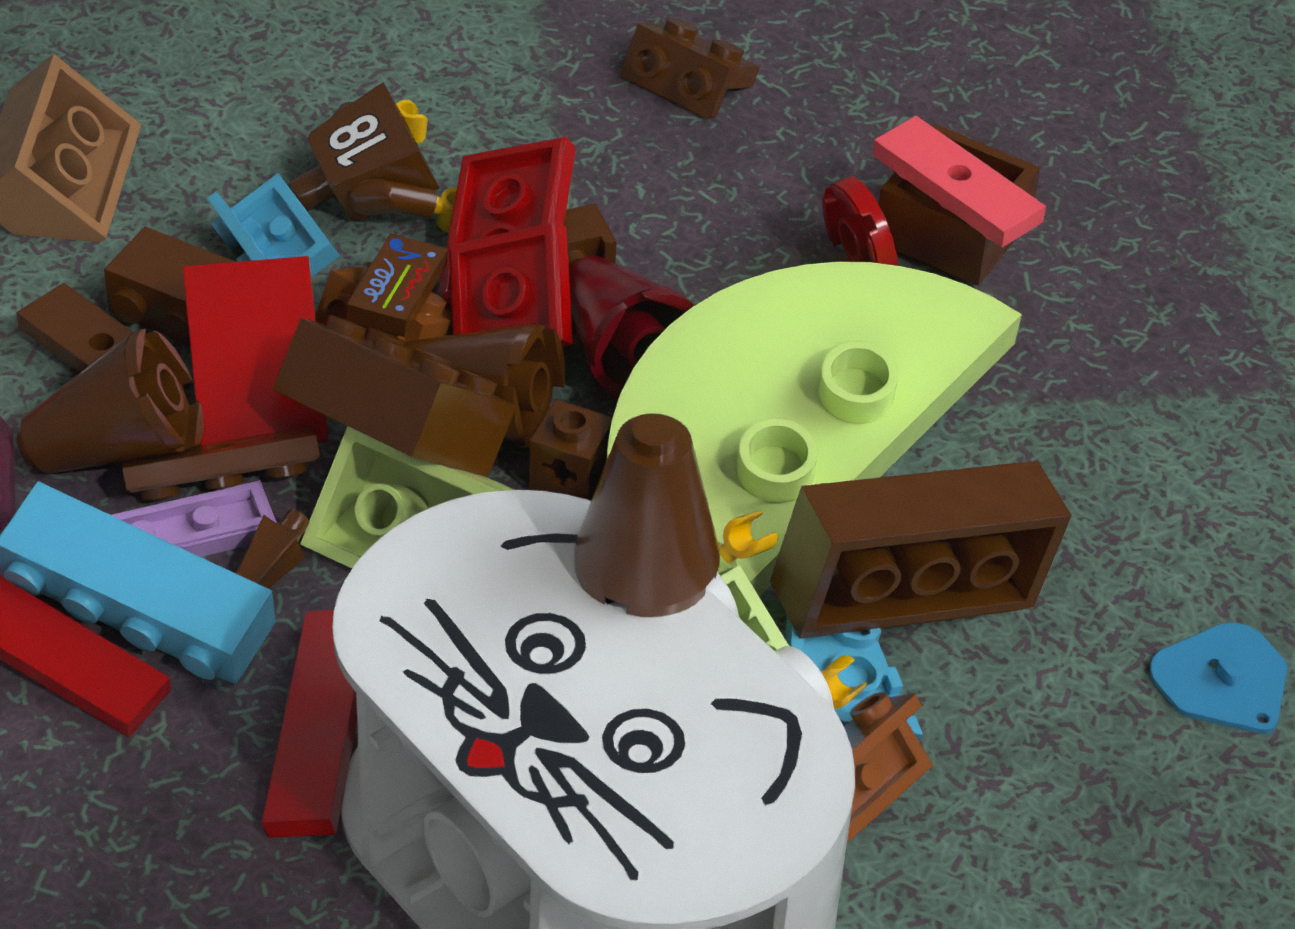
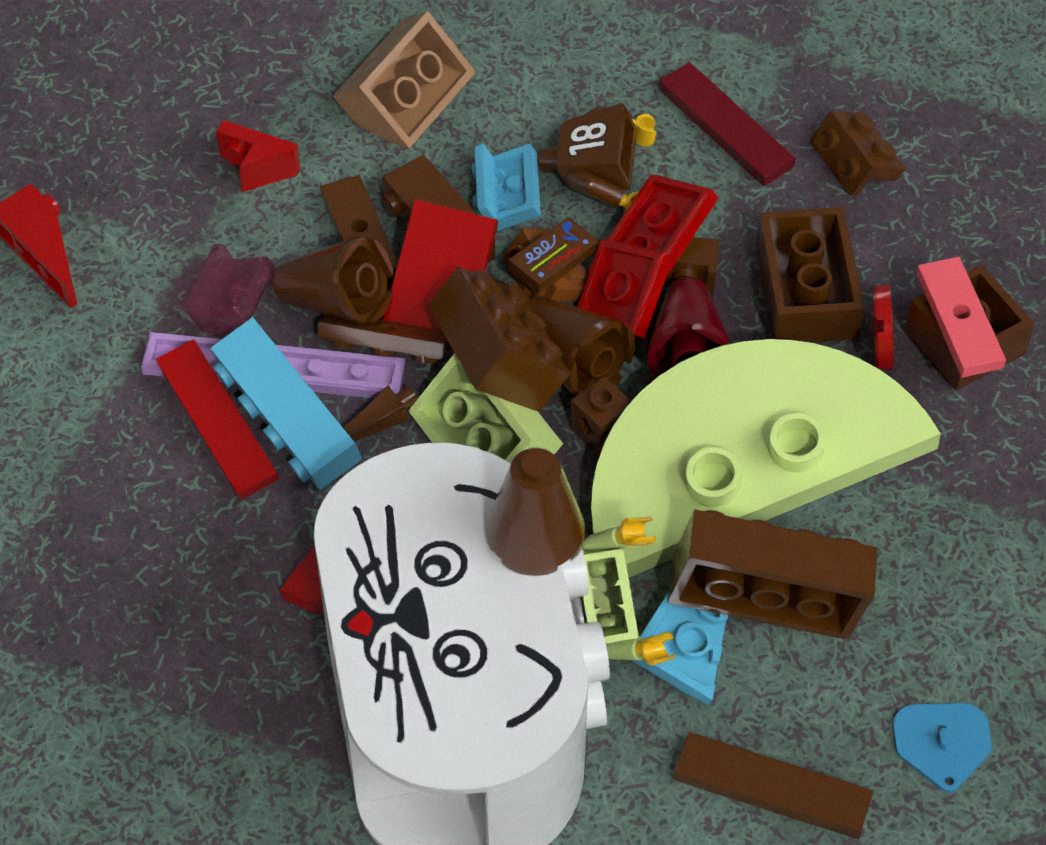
camera: 30 degrees right, 10 degrees up
(507, 85) = (727, 124): none -> dark red tile
(727, 205) = (809, 275): none -> reddish brown brick
(884, 754) = (654, 707): dark orange bracket -> none
(1060, 806) = (773, 785): none -> reddish brown tile

